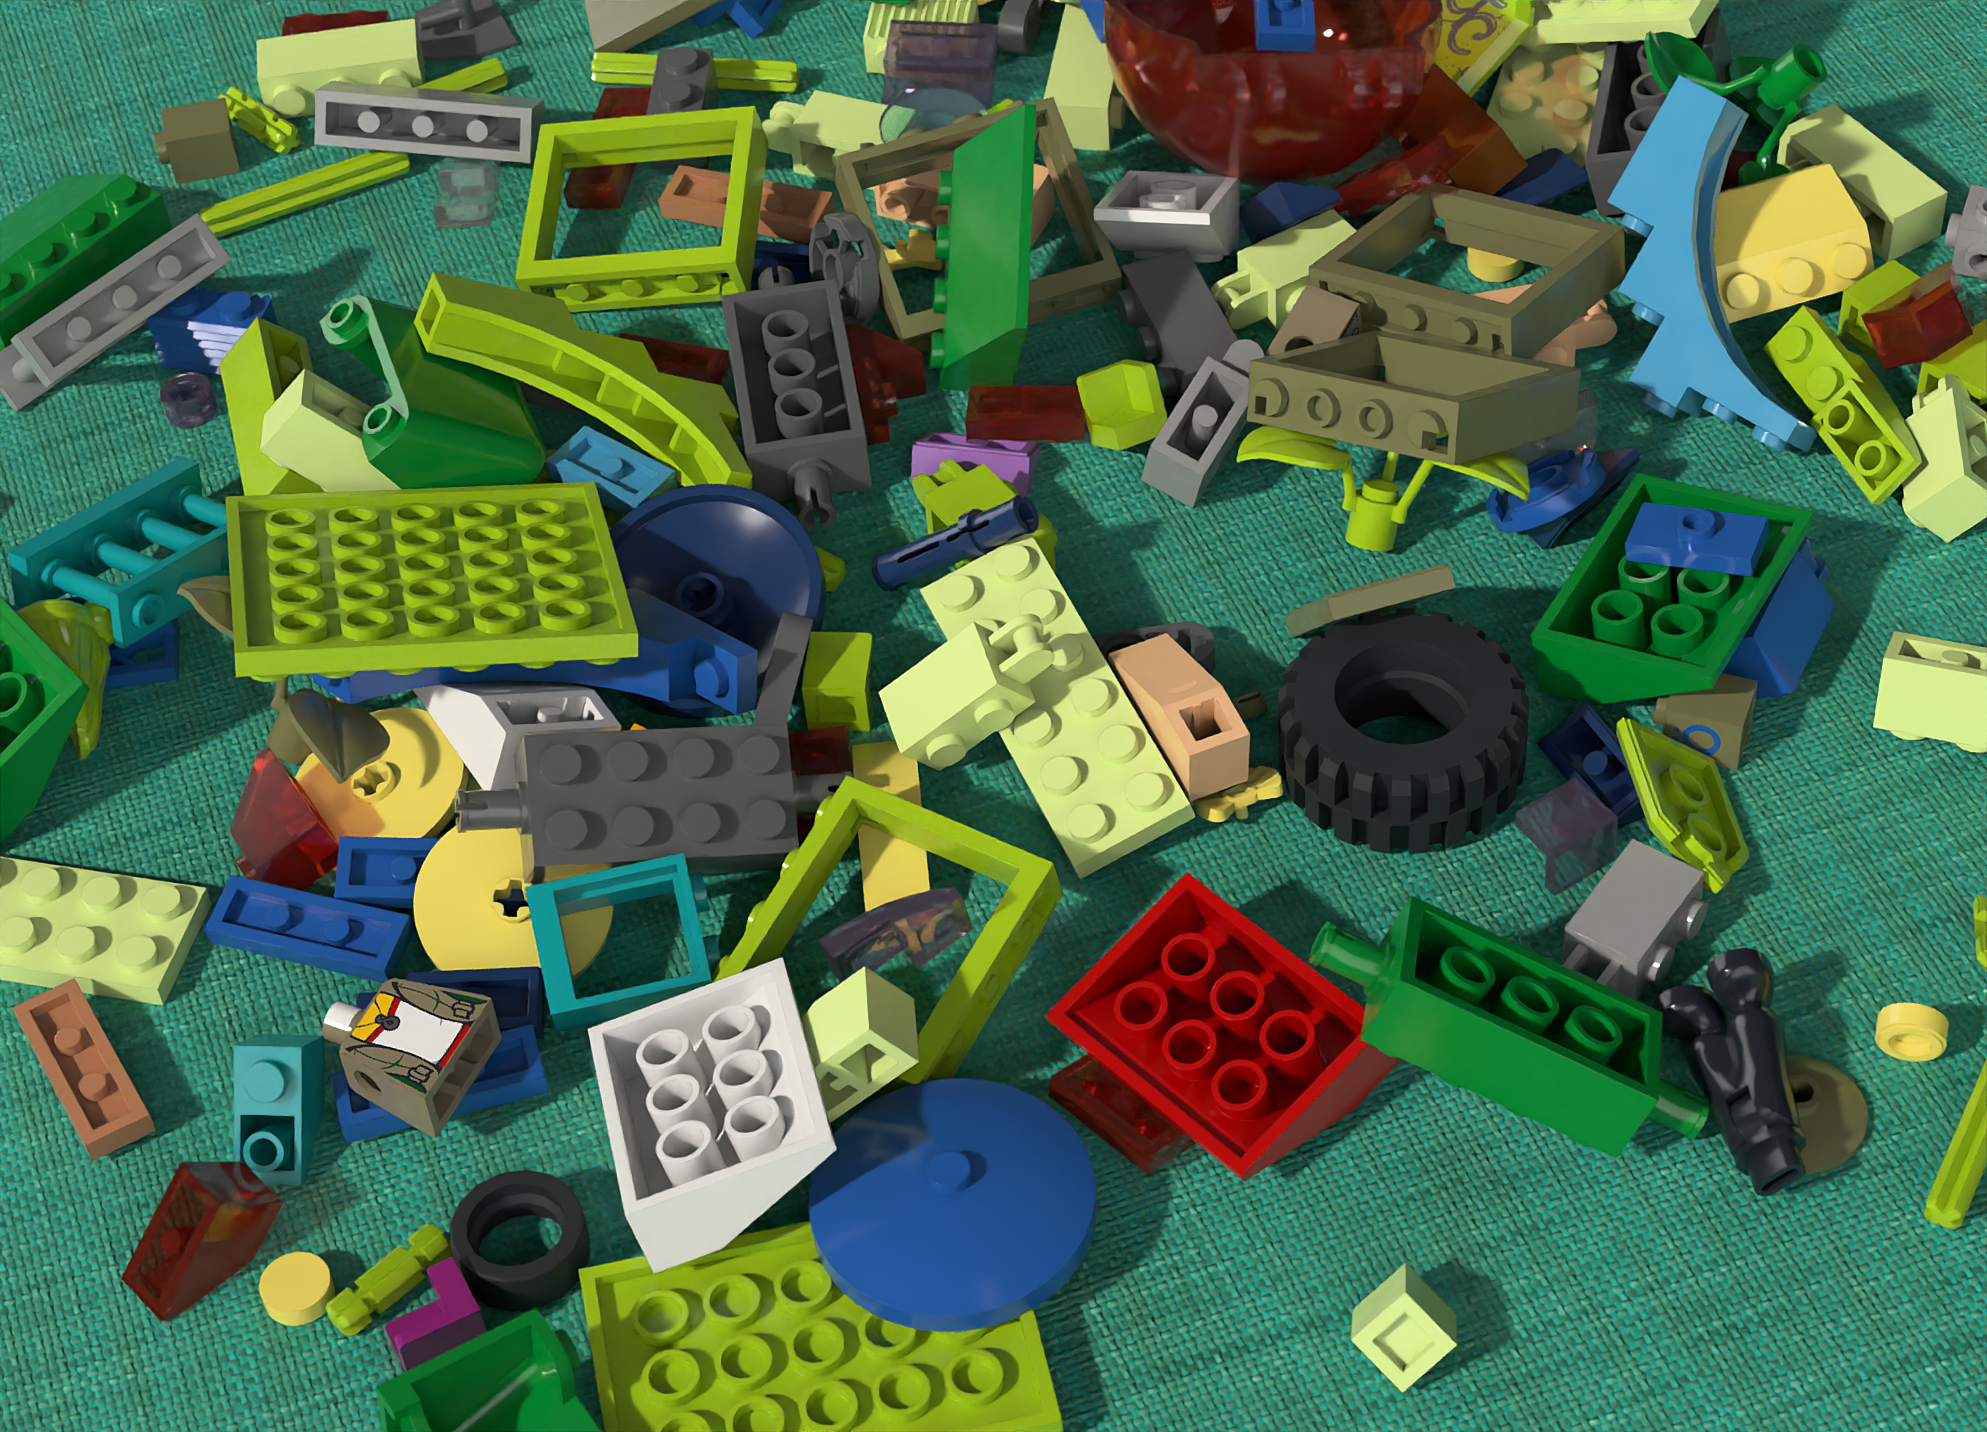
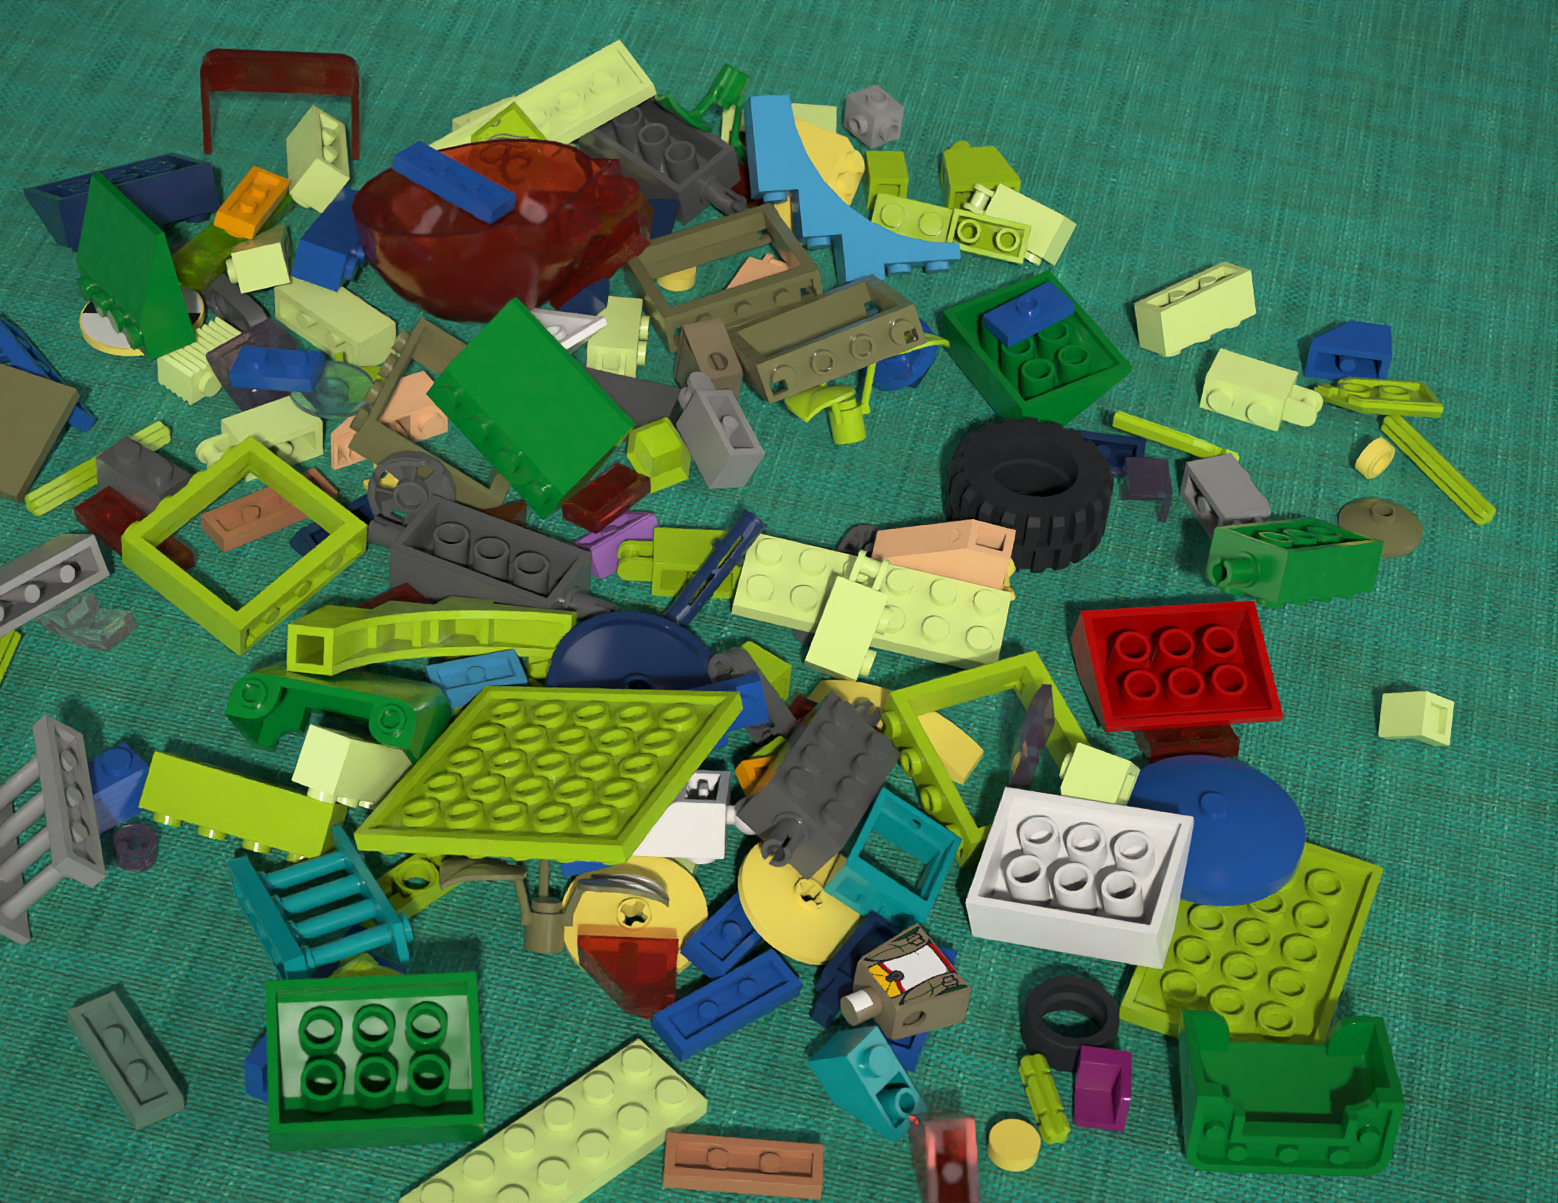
camera: 65 degrees left, 5 degrees down
(909, 72) = (277, 369): none -> blue plate
(1381, 596) = (936, 448): olive tile -> none
(1711, 719) = (1124, 397): olive brick -> none
(1741, 1064) = (1367, 514): black piece -> none
(1898, 843) = (1258, 392): none -> yellowish green brick
(1921, 319) = (929, 164): clear red slope -> none

